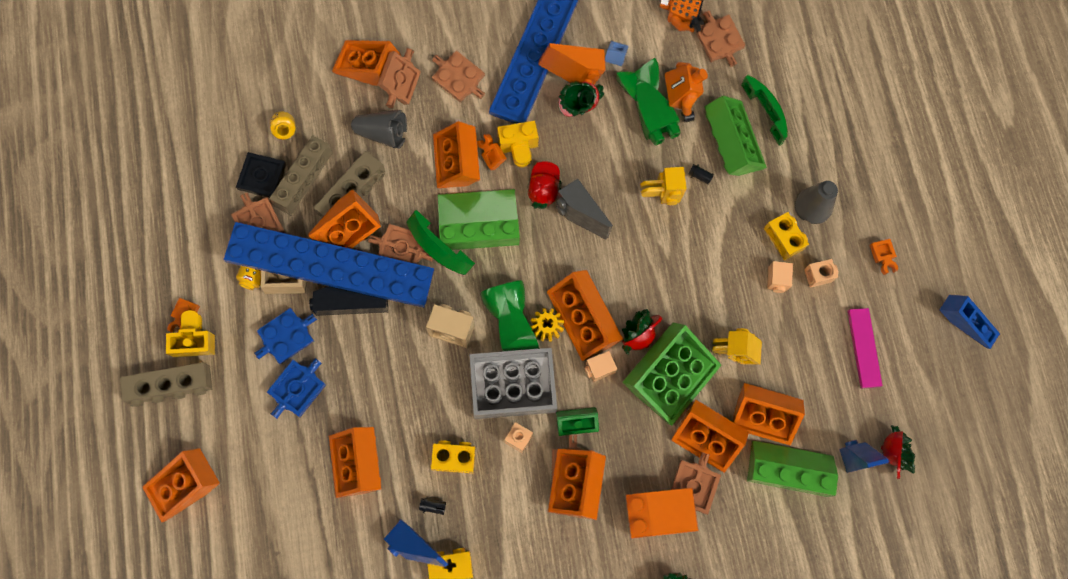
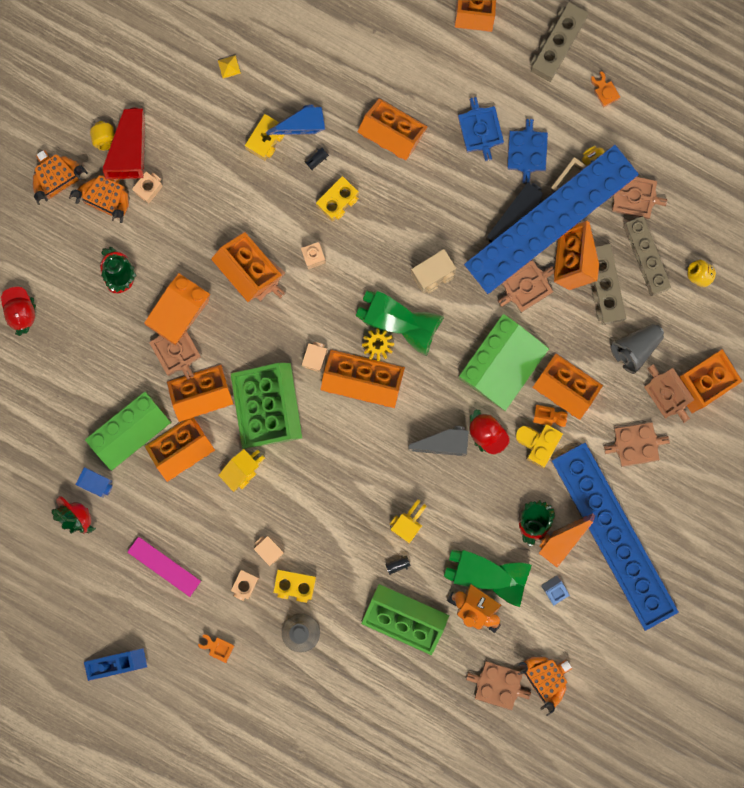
camera: 140 degrees right, 10 degrees up
(191, 338) = (578, 81): yellow brick -> none
(260, 175) = (673, 227): black plate -> none
(435, 247) = (529, 309): green slope -> none
(513, 383) = (354, 281): light grey slope -> none
(577, 421) = (291, 309): green slope -> none
(640, 331) = (315, 407): hair -> none
(756, 89) = (431, 671): green slope -> none

